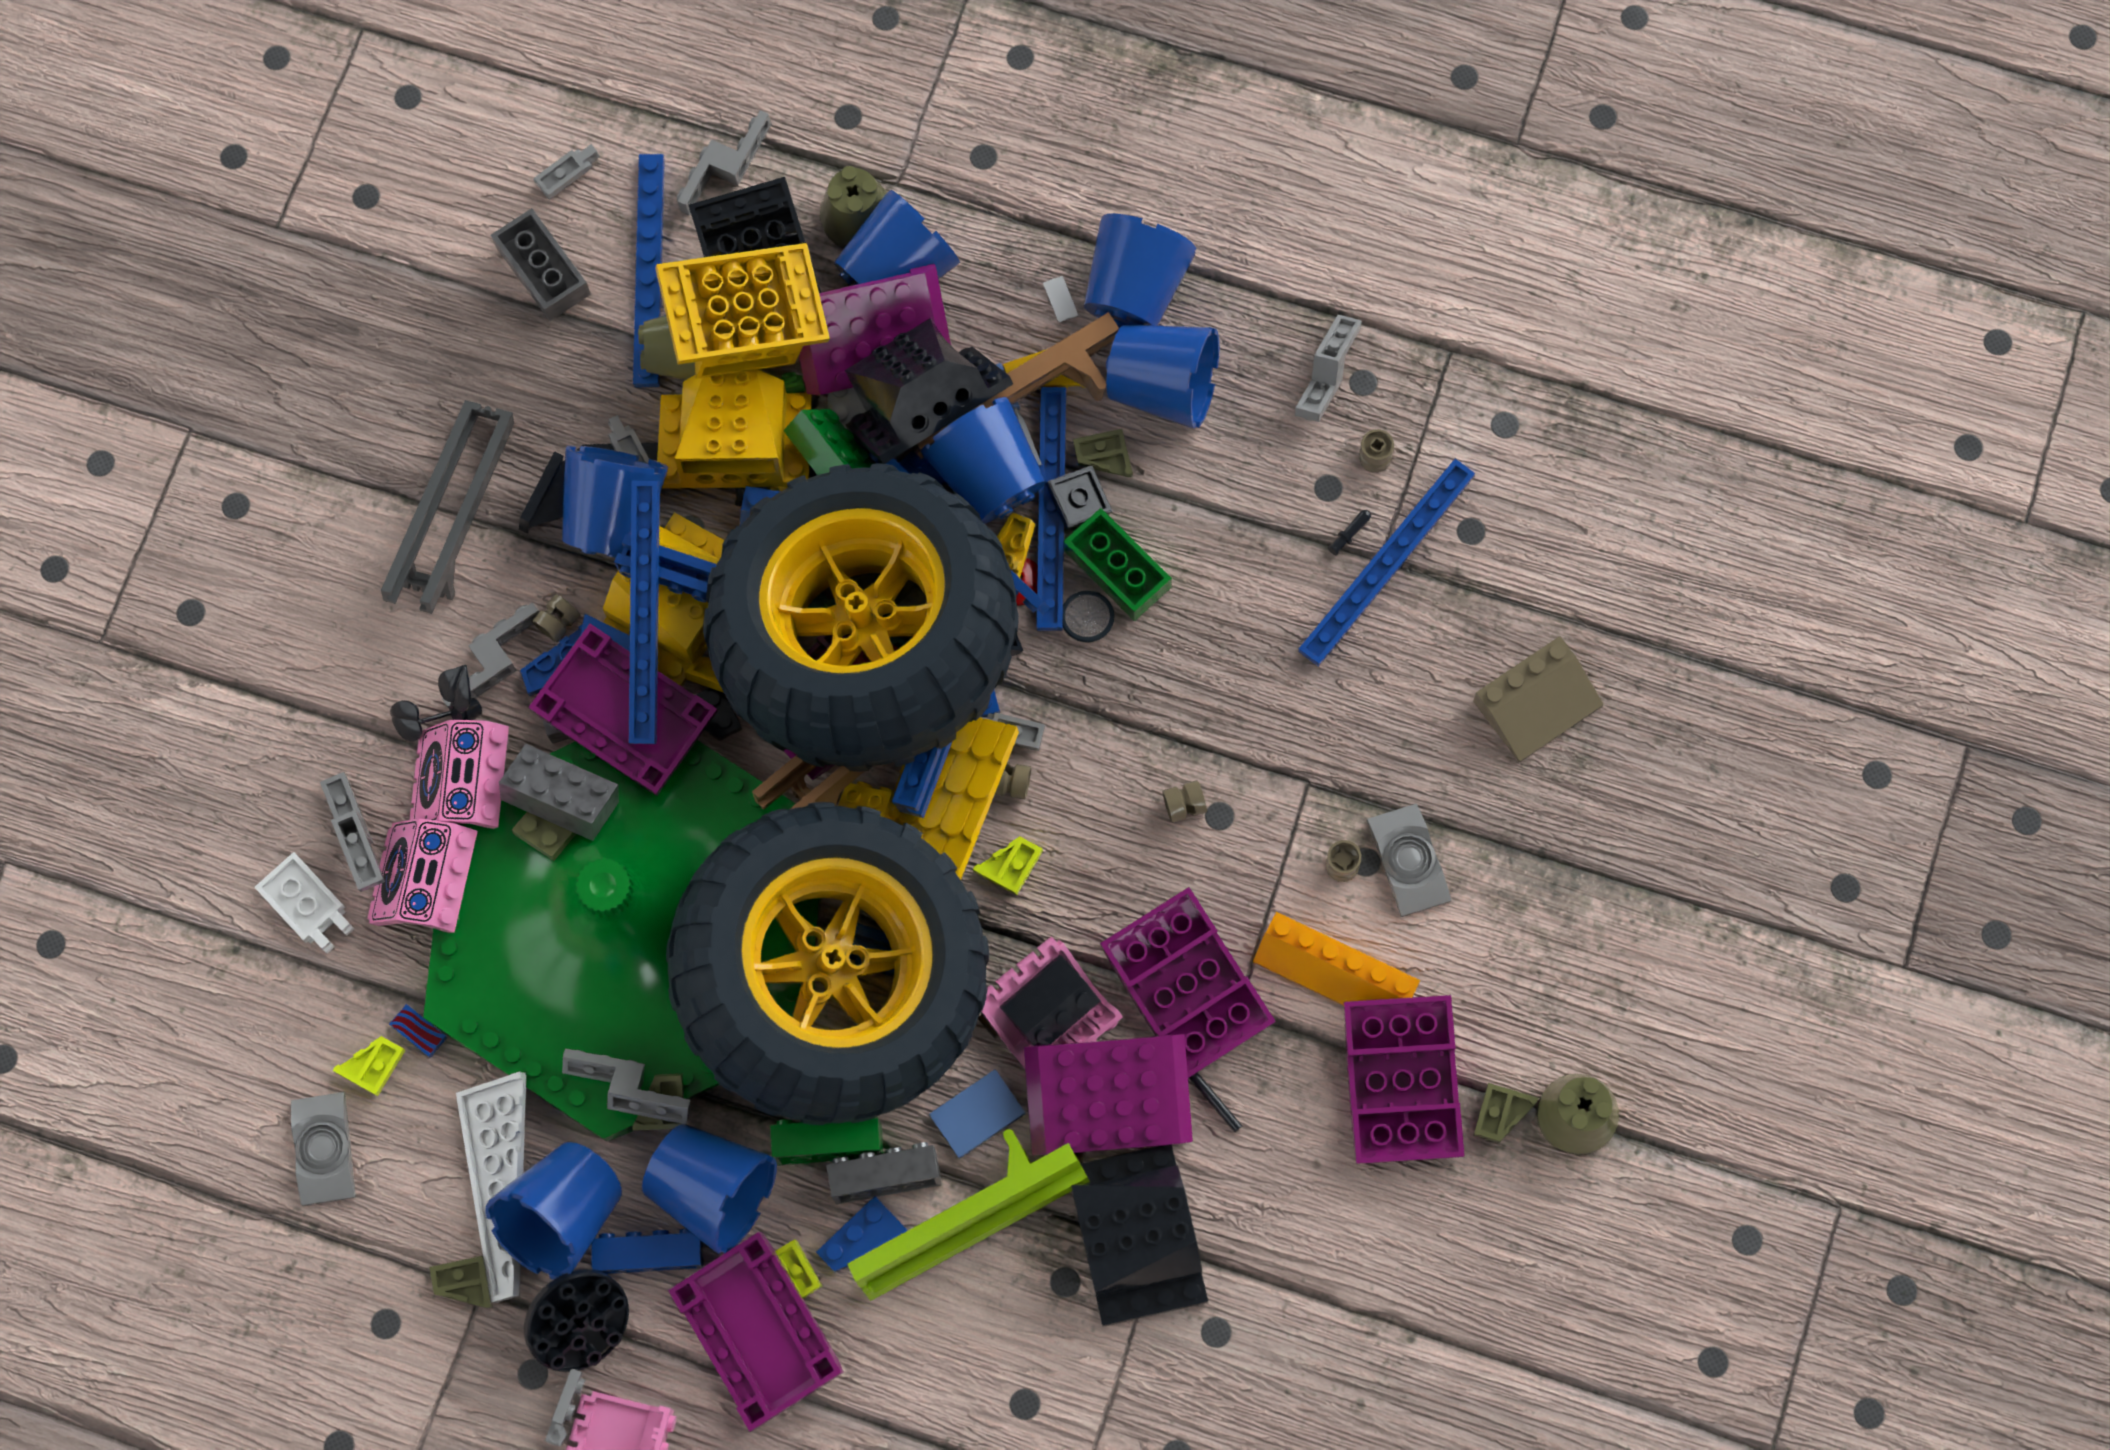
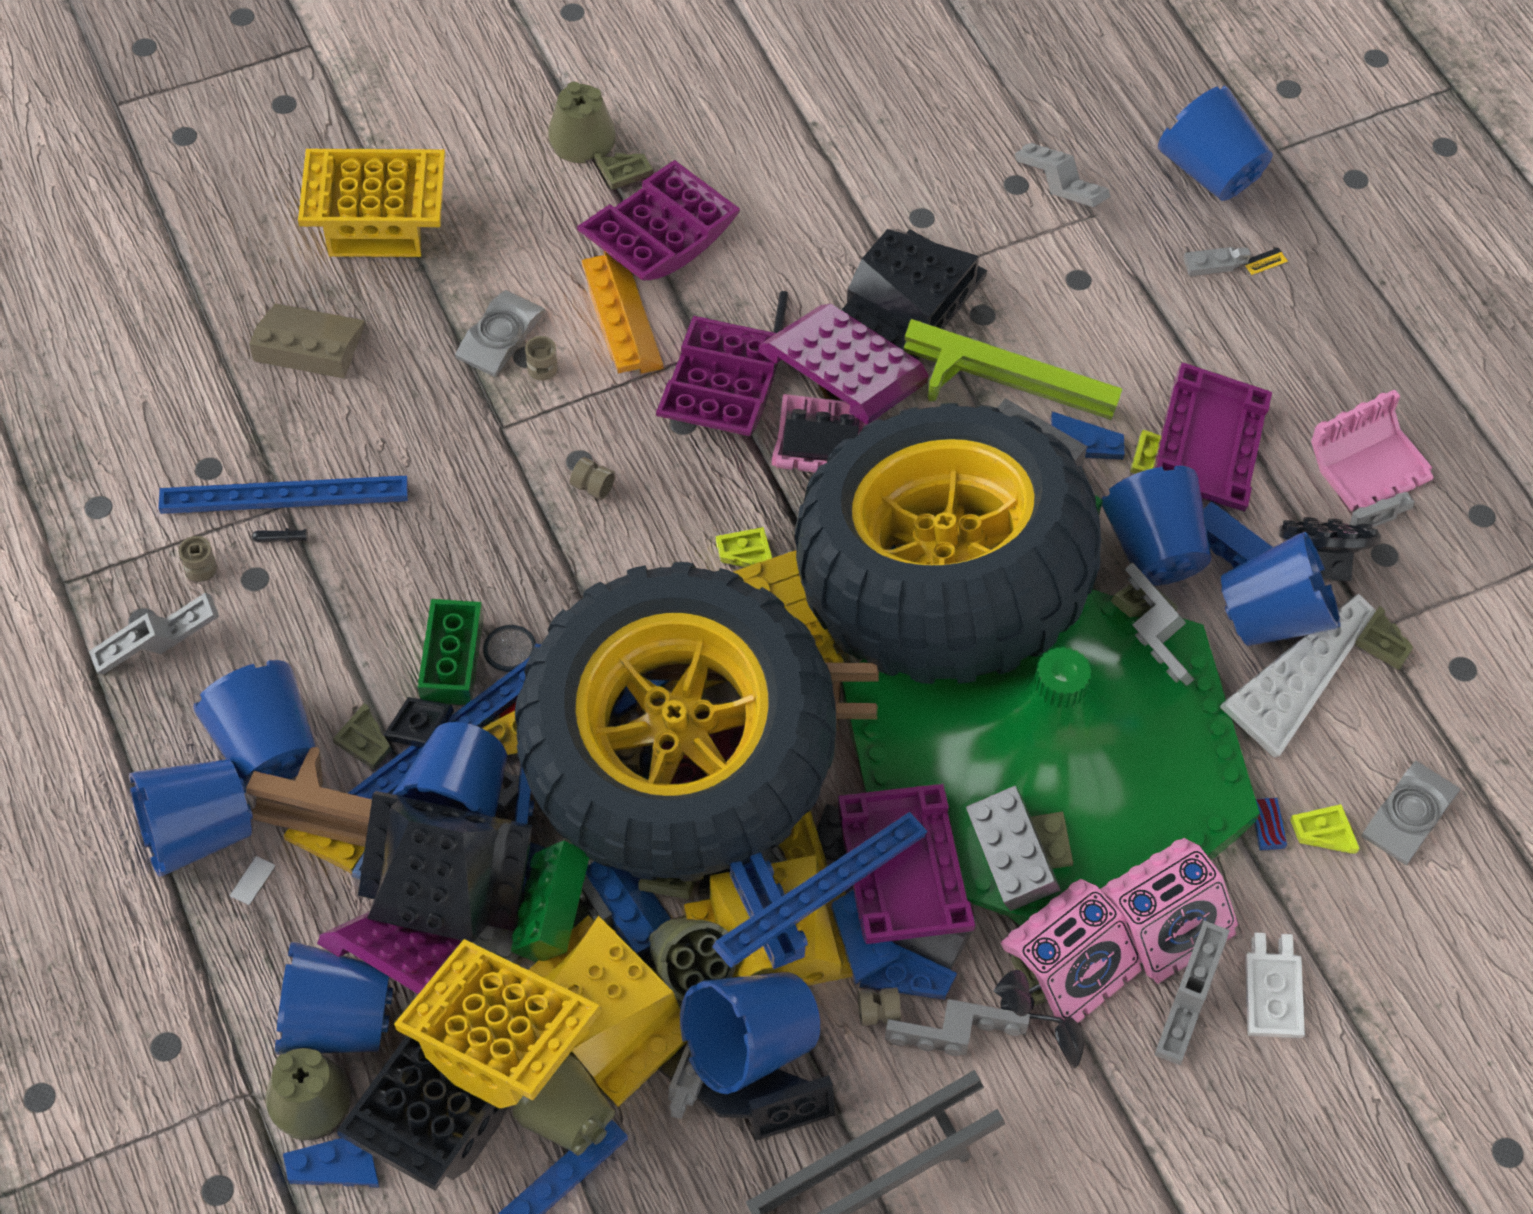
camera: 140 degrees left, 15 degrees down
(699, 505) = (686, 954): none -> olive cone
(806, 185) = (331, 1164): none -> blue wing
(1634, 844) = (372, 199): none -> yellow wedge

